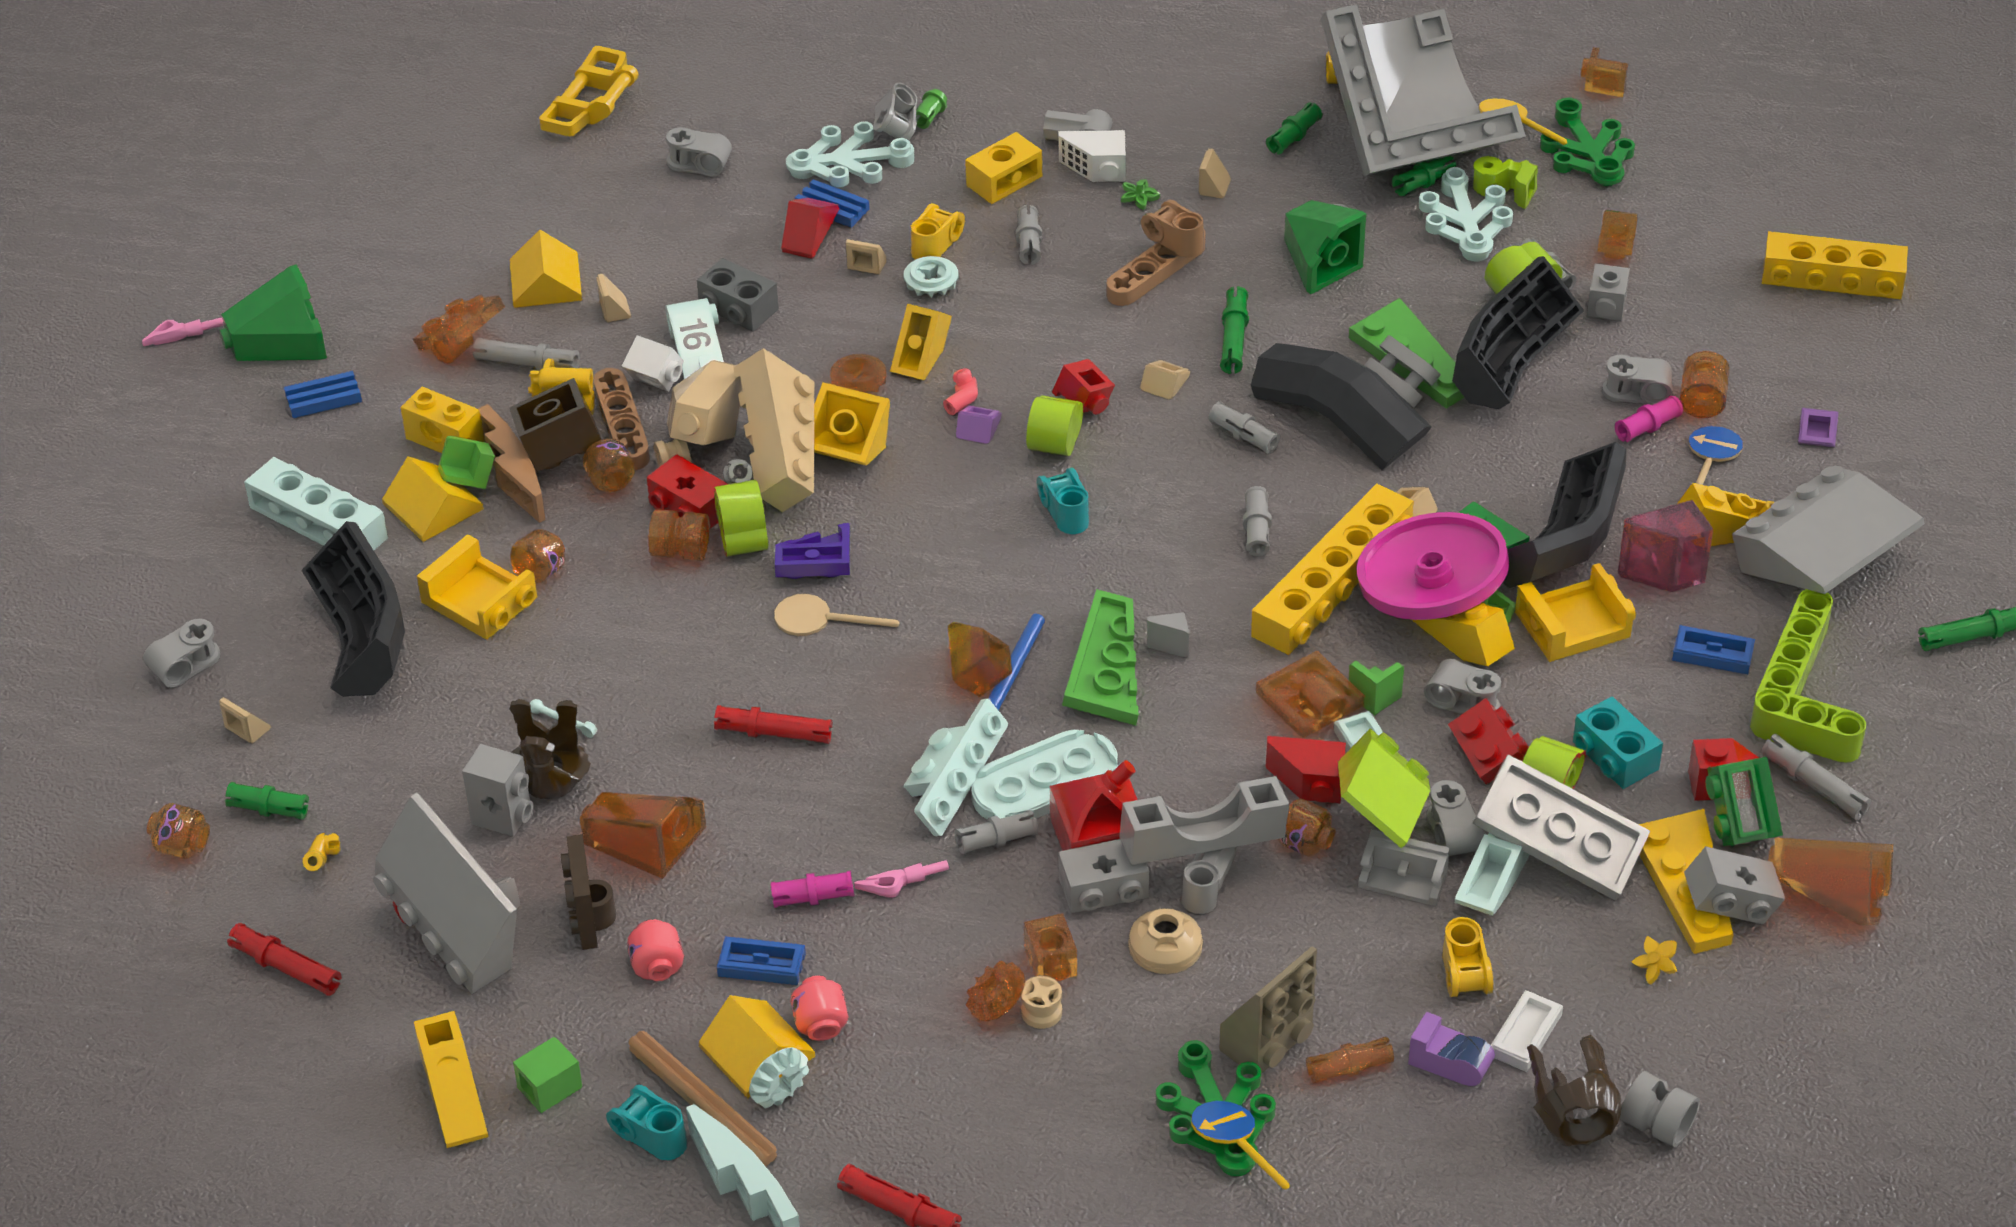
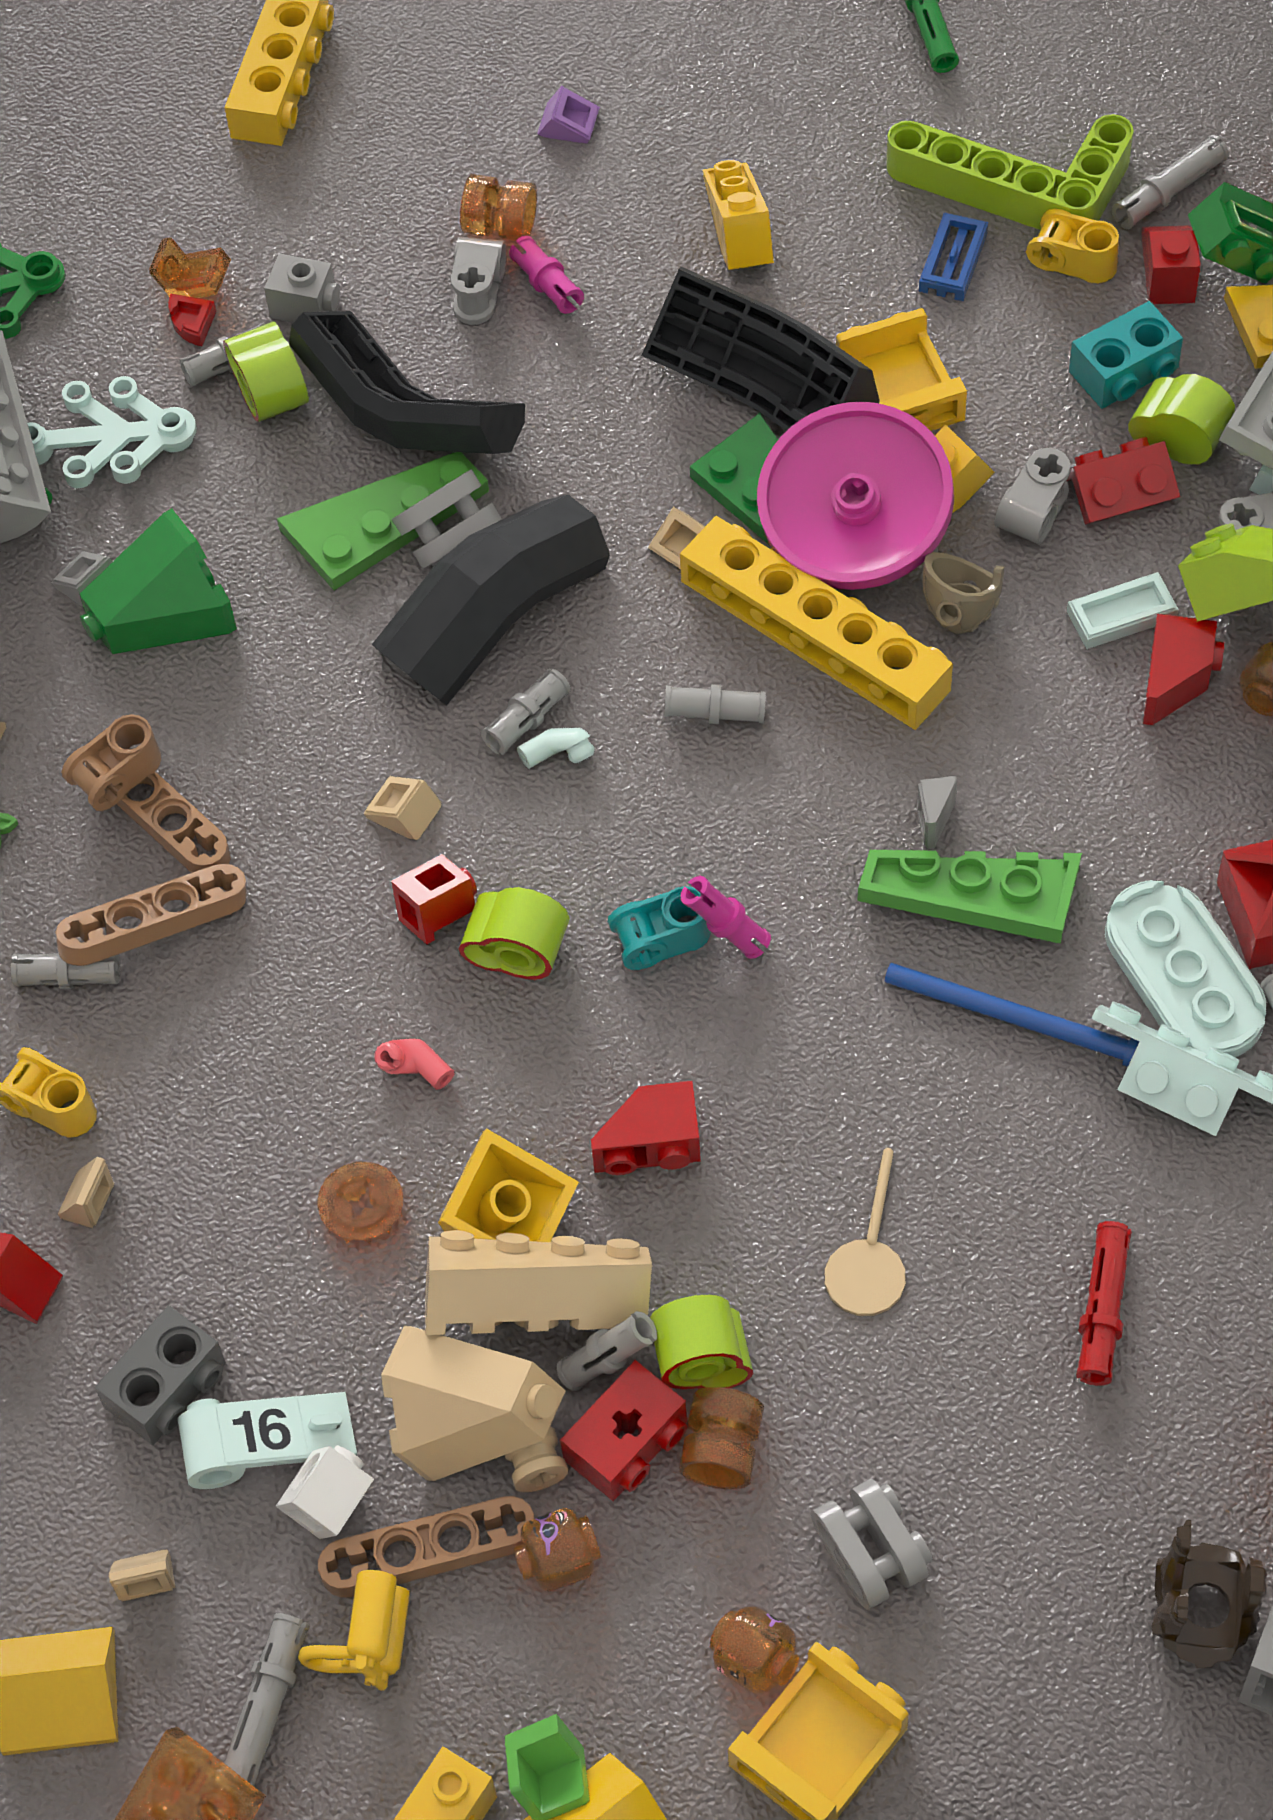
camera: 85 degrees left, 15 degrees up
(512, 464) = (563, 1689): medium nougat slope -> none
(555, 425) = (482, 1624): dark brown brick -> none
(587, 728) = (1059, 1639): light aqua hinge -> none
(604, 607) = (877, 1511): none -> light grey brick
(814, 555) = (757, 1250): dark purple wing -> none
(908, 499) = (649, 1131): none -> red slope
(920, 341) = (305, 1110): yellow slope -> none
(927, 268) = (140, 1082): light aqua gear -> none
(977, 424) = (478, 1043): medium lavender slope -> none
(977, 658) = (984, 1032): clear orange slope -> none
(1063, 516) = (725, 917): none -> dark pink pin
(1070, 260) = (148, 907): none -> medium nougat beam
(1220, 443) = (555, 740): none -> light aqua arm
(1235, 320) = (318, 714): green pin -> none
(1310, 694) = (1042, 660): clear orange plate -> none
(1363, 634) = (957, 604): none -> dark tan helmet
(1378, 686) = (1031, 589): bright green panel -> none
(1509, 174) = (49, 361): lime leg -> none
(1581, 249) = (191, 317): none -> red tile
(1666, 547) = (811, 260): clear pink slope -> none
(1714, 445) = (593, 218): blue piece -> none
(1730, 712) = (1078, 246): none -> yellow piece
(1824, 531) = (795, 113): light grey slope -> none

